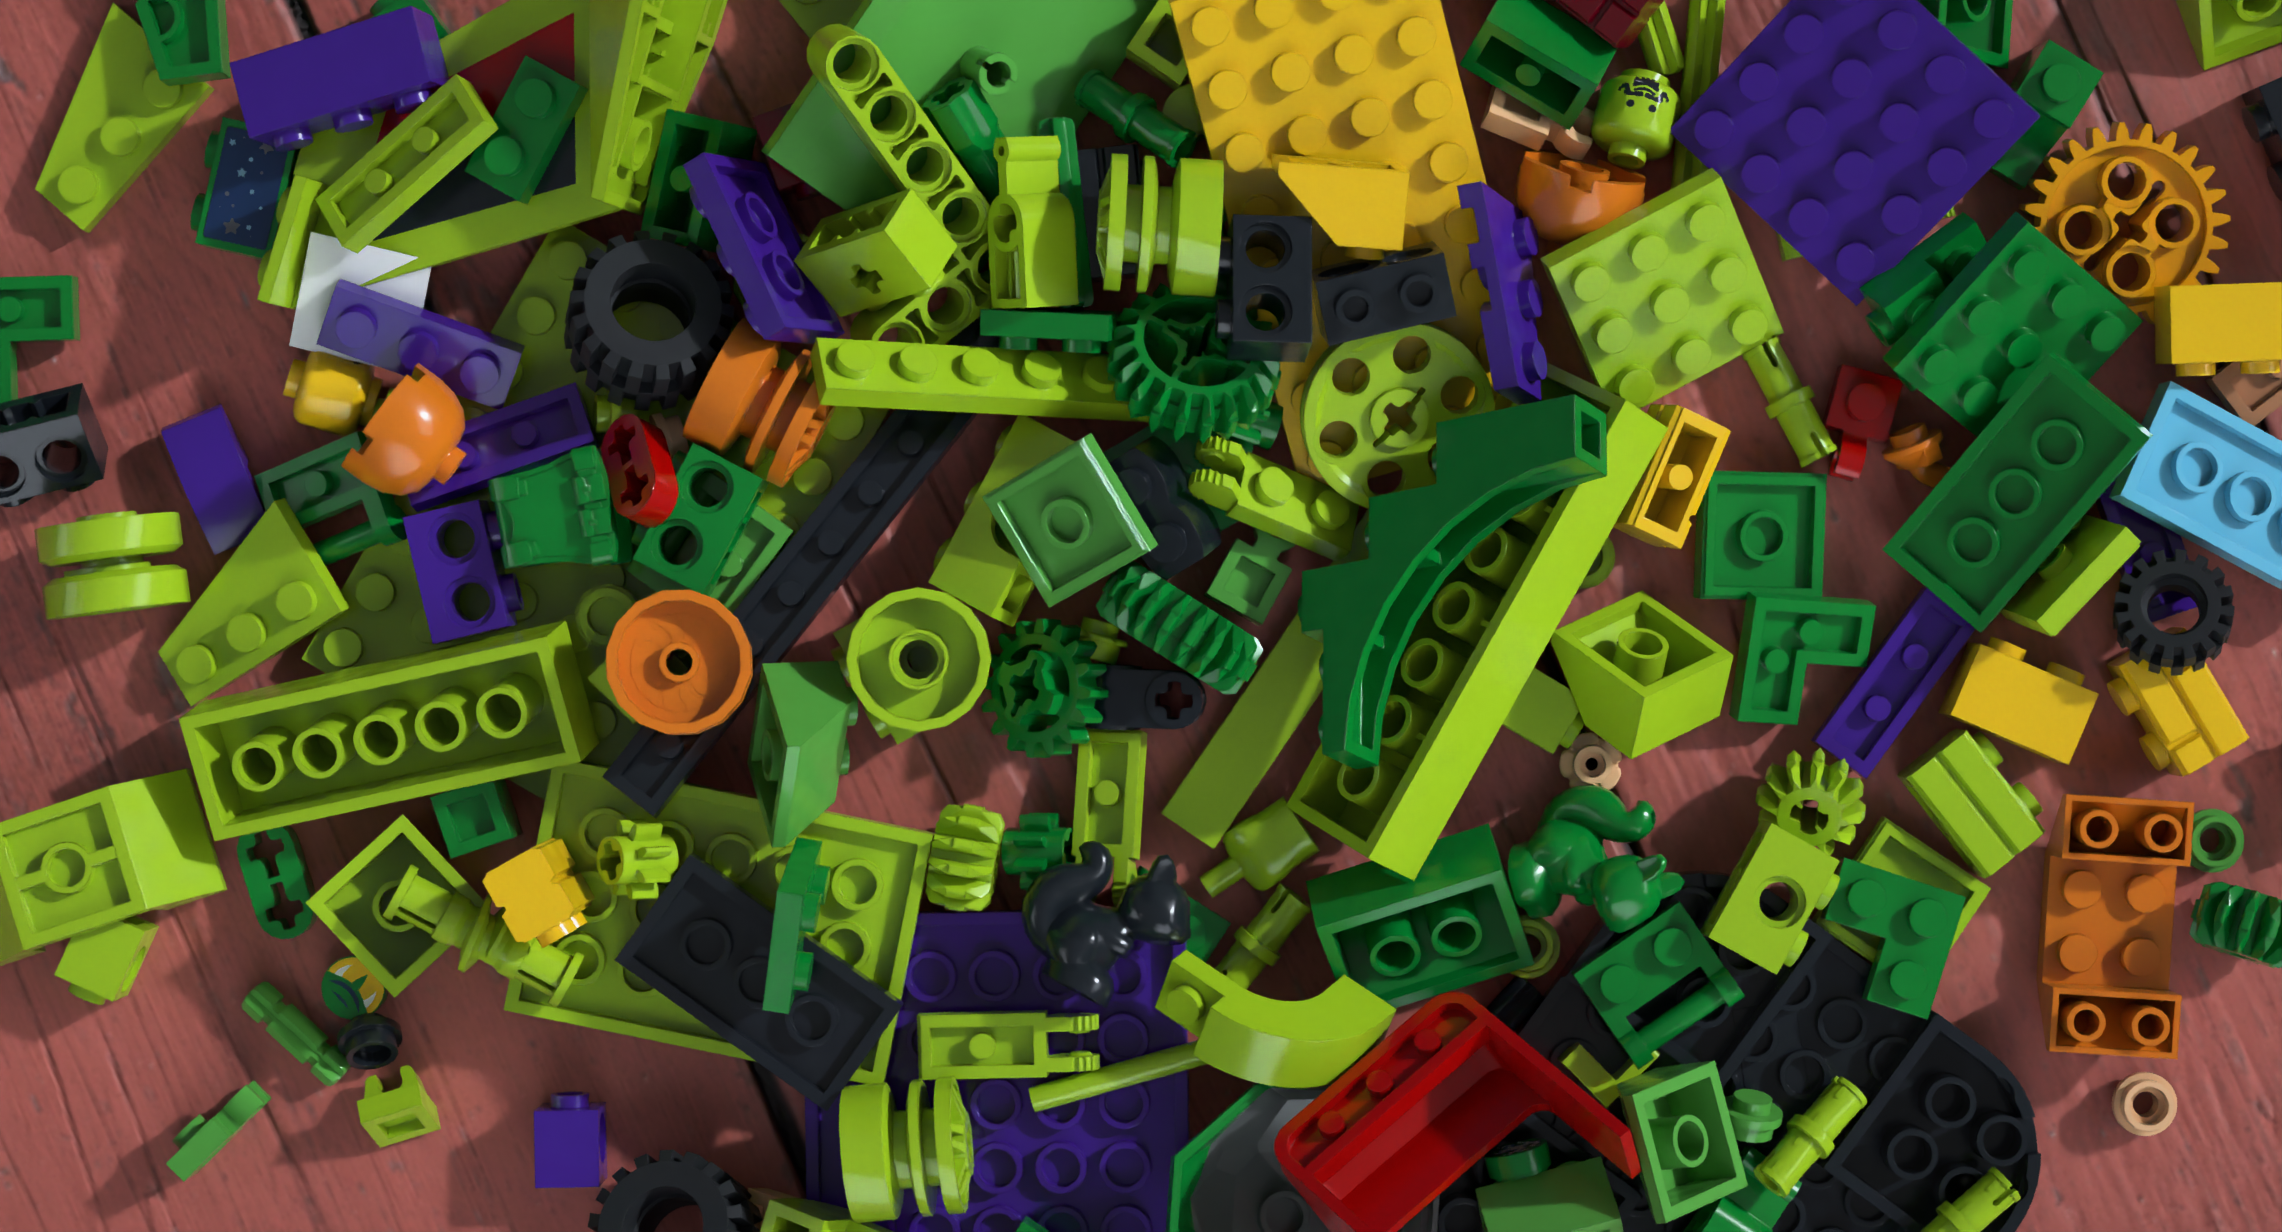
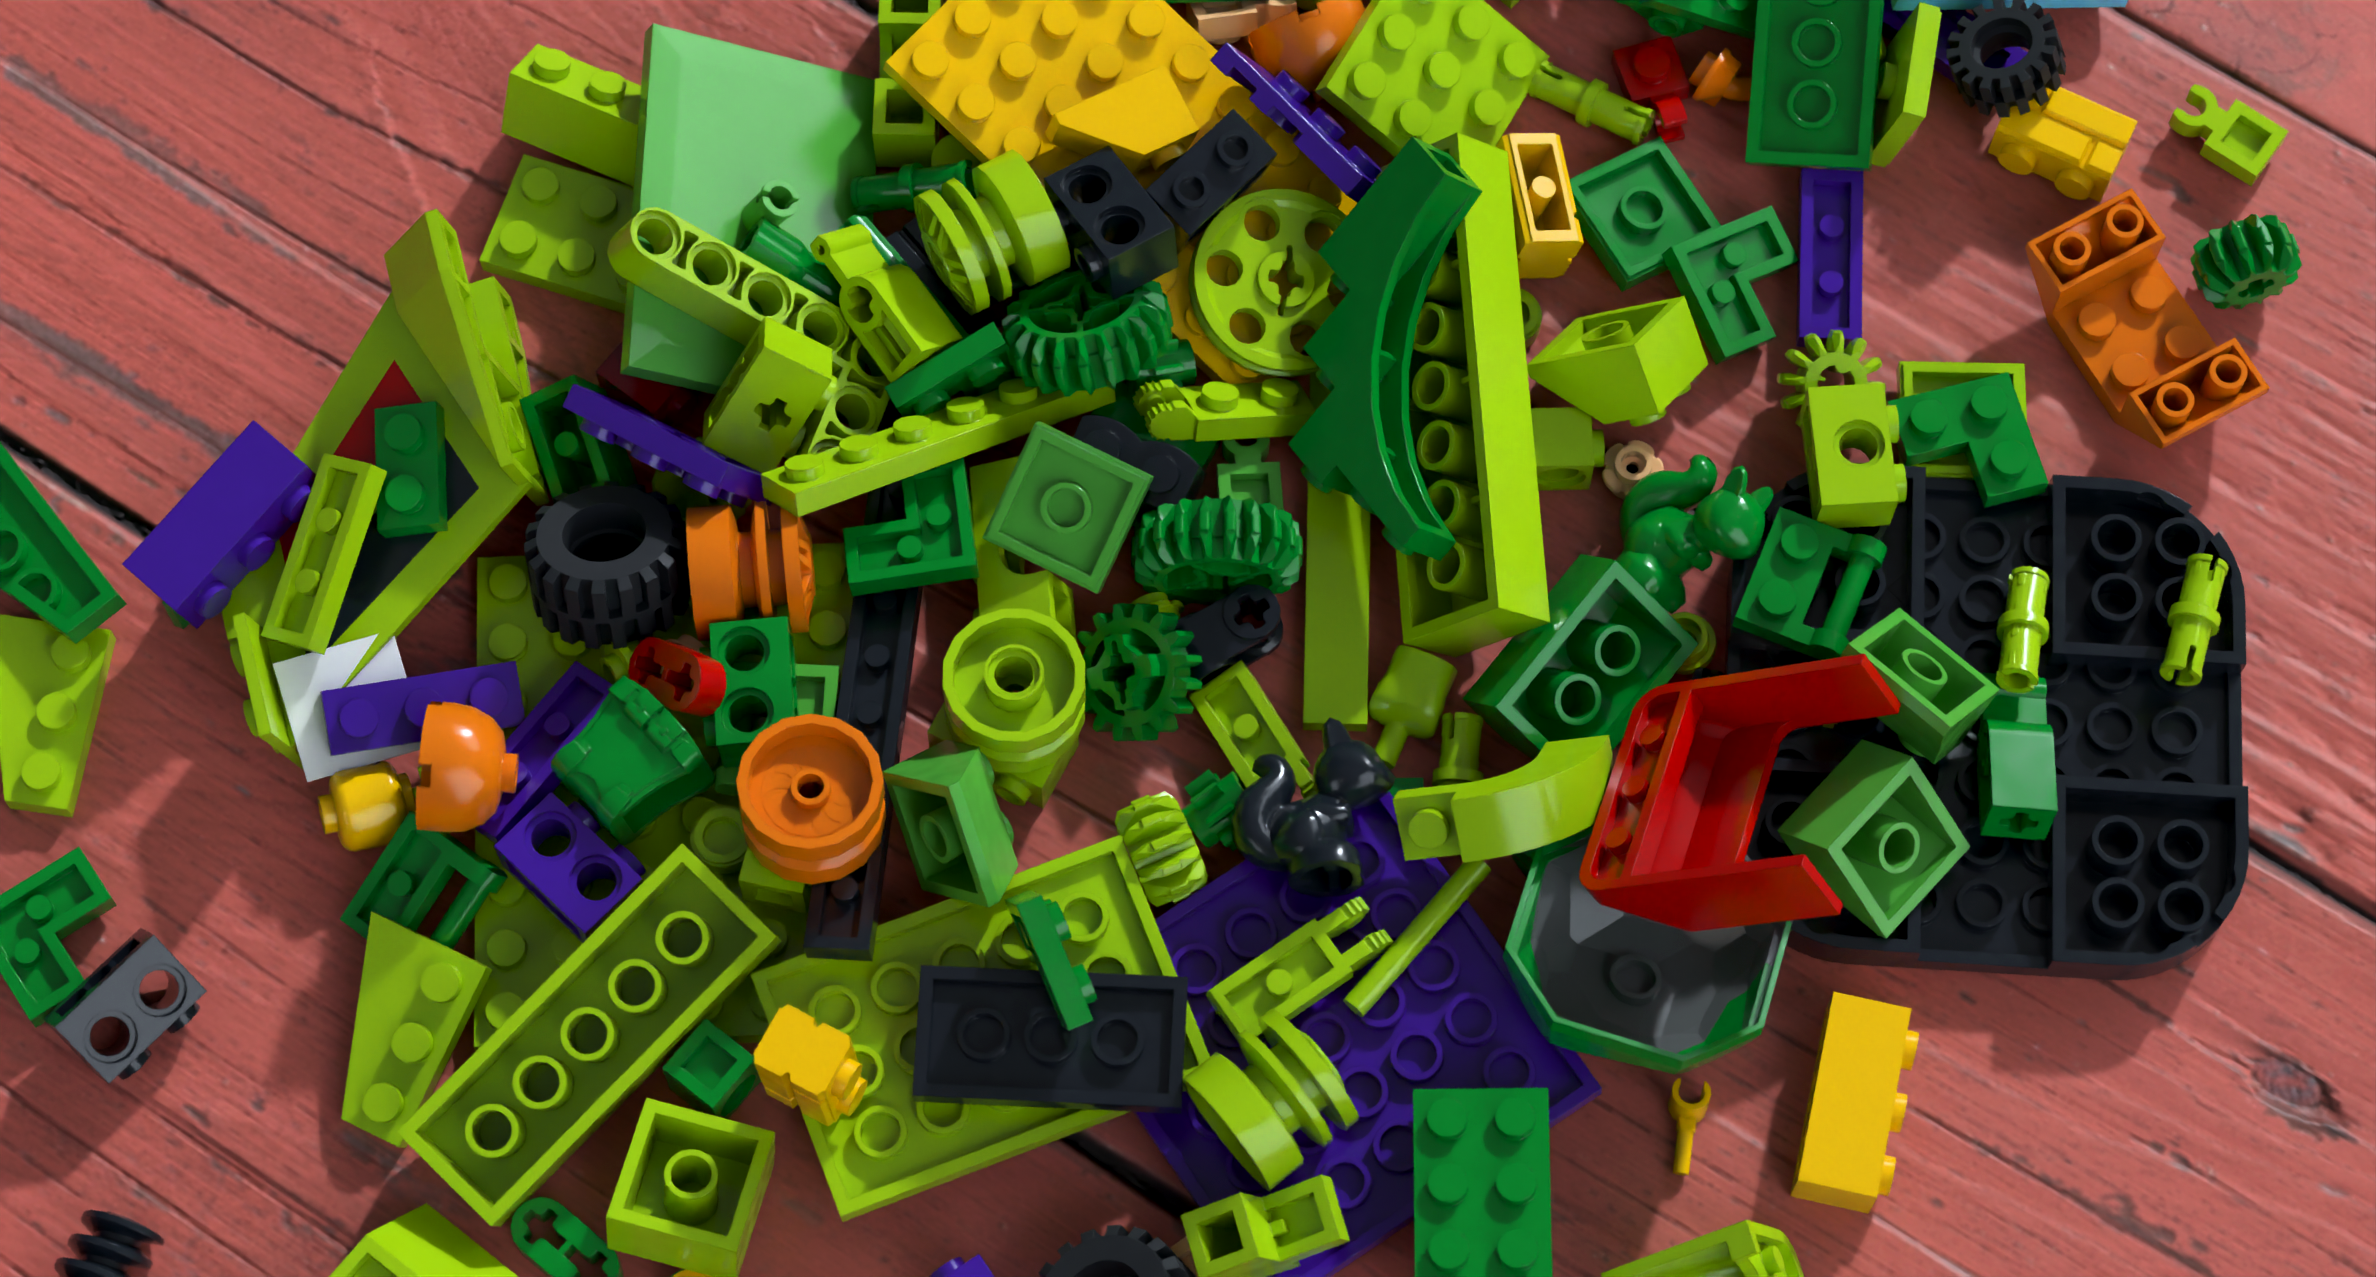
camera: 30 degrees left, 20 degrees down
(112, 564) = (258, 1052): lime wheel -> none
(215, 476) = (305, 941): dark purple slope -> none
(241, 192) = (196, 690): dark blue brick -> none
(482, 936) = (783, 1146): lime piece -> none
(637, 859) = (878, 997): lime gear -> none
(930, 474) = (926, 547): none -> green plate
(1518, 1160) = (1795, 789): green tile -> none
(1753, 1115) = (1966, 640): bright green plate -> none
(1973, 801) = (1959, 307): lime brick -> none
(2019, 701) = (1939, 212): yellow brick -> none
(2162, 1109) = (2279, 443): light nougat plate -> none
(2230, 840) = (2181, 216): bright green plate -> none

